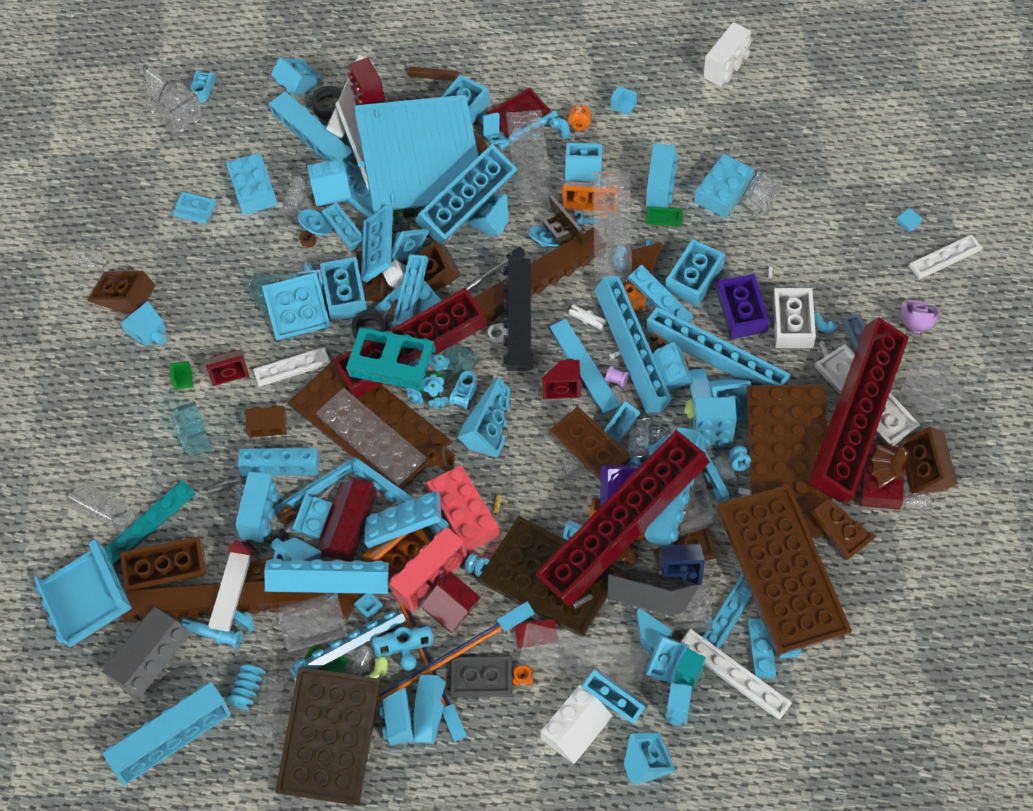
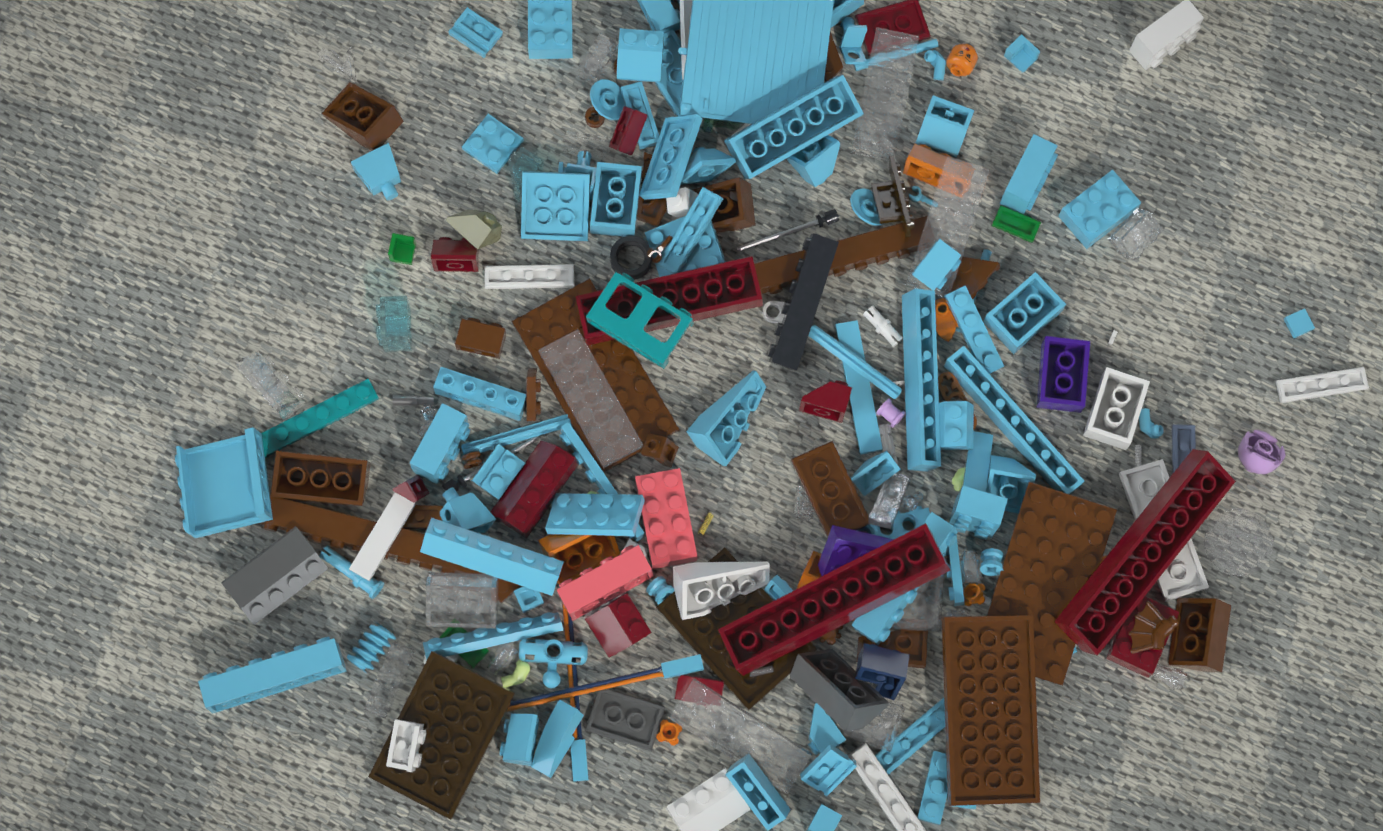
camera: 10 degrees right, 15 degrees up
(231, 281) = (492, 143): none -> medium azure plate
(239, 337) = (477, 227): none -> slope
(244, 620) = (390, 571): medium azure plate -> none
(299, 752) = (405, 745): none -> white bracket
(321, 441) = (533, 387): none -> reddish brown wing
(337, 238) = (628, 130): none -> dark red slope
(433, 382) = (679, 359): medium azure plant -> none
(461, 360) = (714, 338): clear light blue slope -> none
(464, 393) = (710, 377): medium azure piece -> none
(516, 546) = (709, 584): none -> white wedge
(575, 347) = (855, 362): none -> medium azure axle
(613, 254) = (936, 265): none -> medium azure brick
(690, 669) = (847, 791): teal brick -> none
(735, 488) = (970, 590): none -> orange plate
(841, 529) = (1073, 684): reddish brown wing -> none

